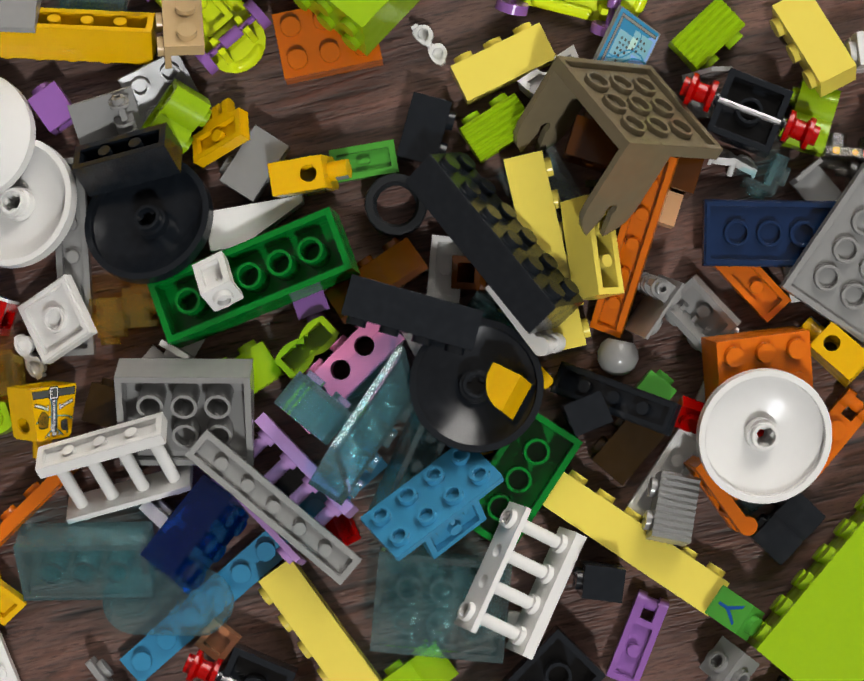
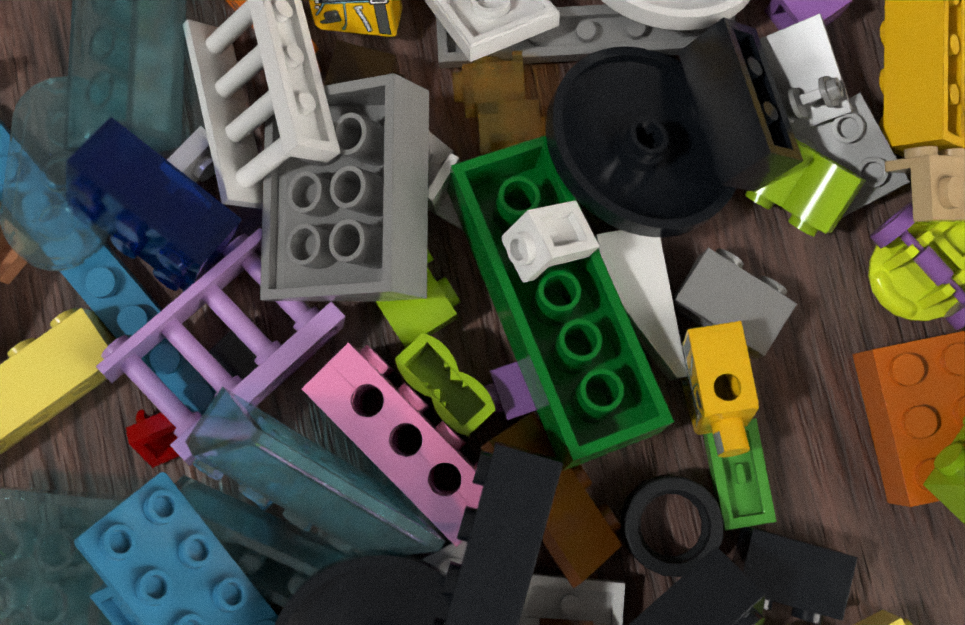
camera: 90 degrees right, 5 degrees down
(221, 134) = (781, 252): yellow hinge -> none
(273, 507) = (183, 333): light grey plate -> none
(314, 407) = (340, 398): clear light blue brick -> none
(424, 36) = (937, 569): white piece -> none

